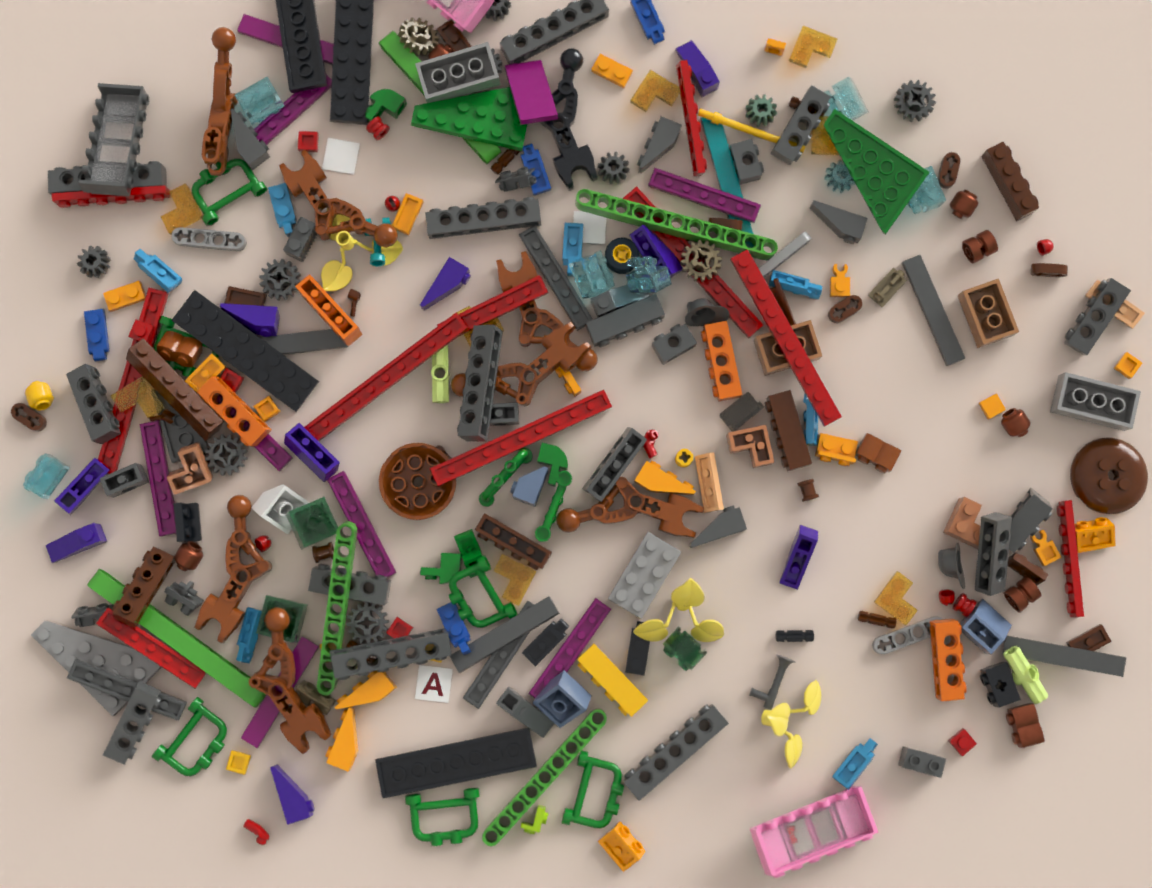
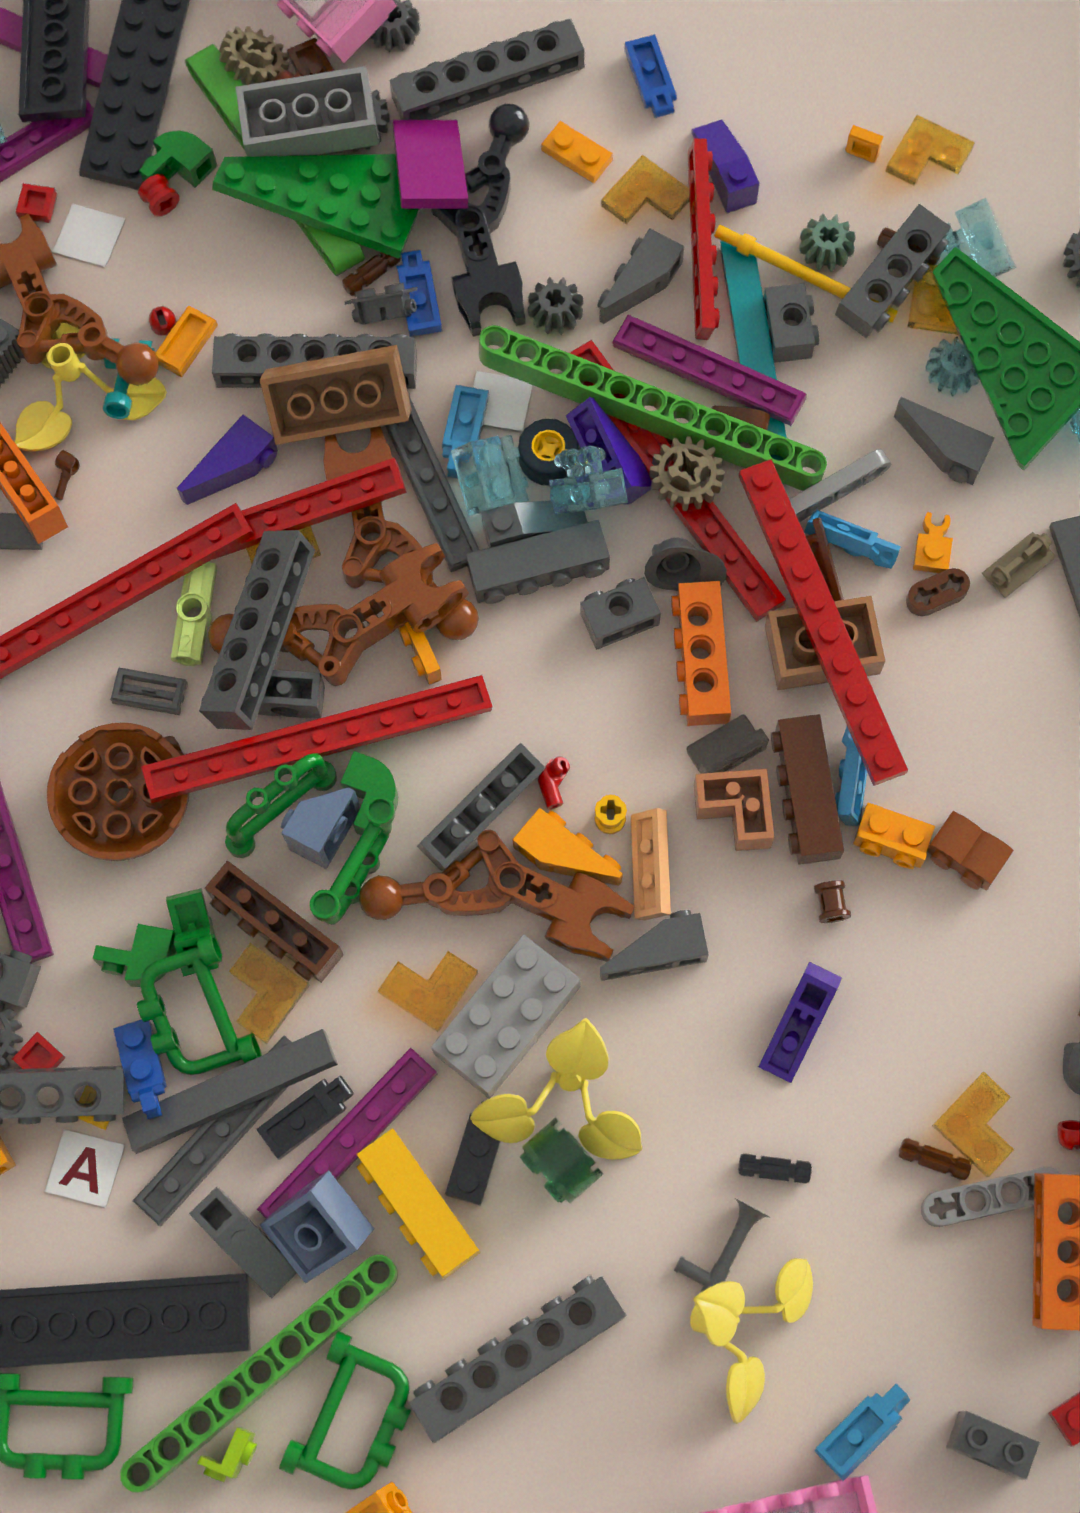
camera: 10 degrees right, 10 degrees down
(428, 421) = (171, 708): none -> dark grey tile
(500, 240) = (336, 395): none -> medium nougat brick
(602, 570) = (433, 998): none -> clear yellow plate

